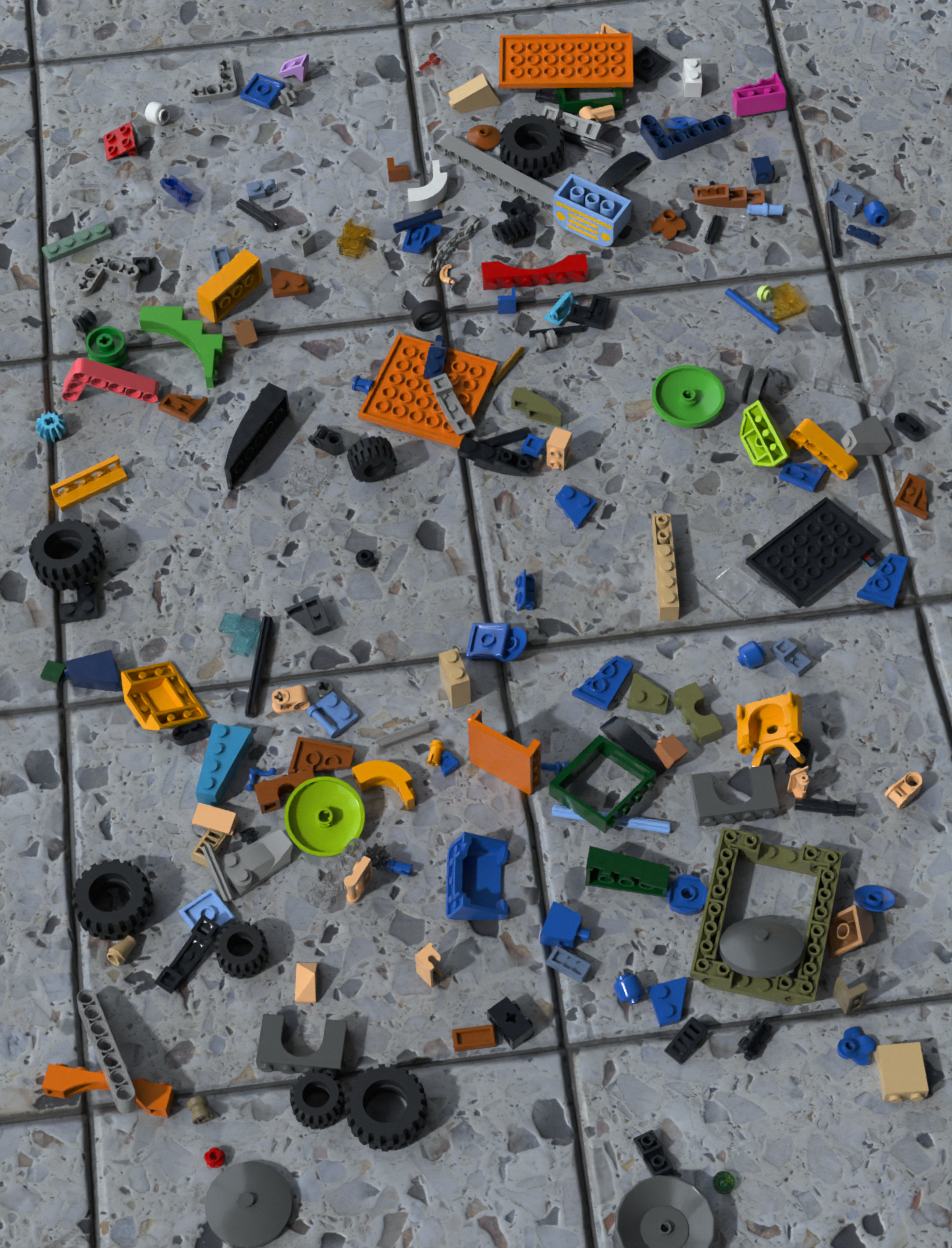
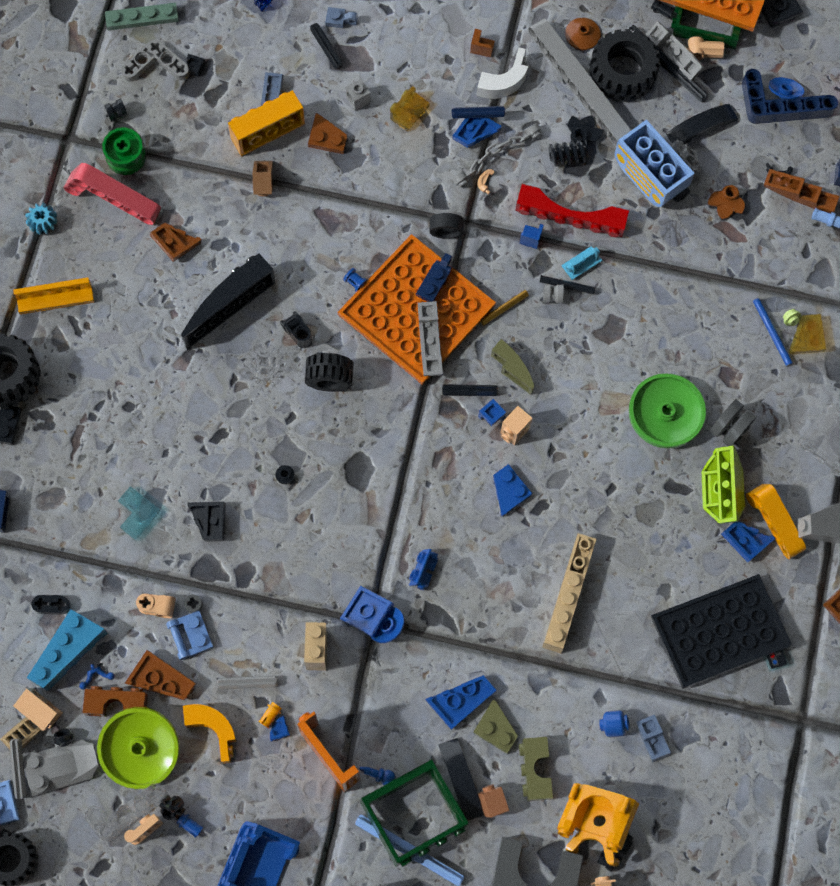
camera: 15 degrees right, 15 degrees up
(160, 697) = (35, 558): light orange slope -> none
(175, 323) = (201, 143): bright green arch -> none
(258, 667) = (140, 556): black axle -> none
(498, 461) = (451, 411): black slope -> none
(592, 316) = (609, 282): black plate -> none
(692, 77) = (818, 38): white brick -> none
(713, 229) = (770, 222): black axle -> none
(886, 581) = (780, 690): blue wing -> none

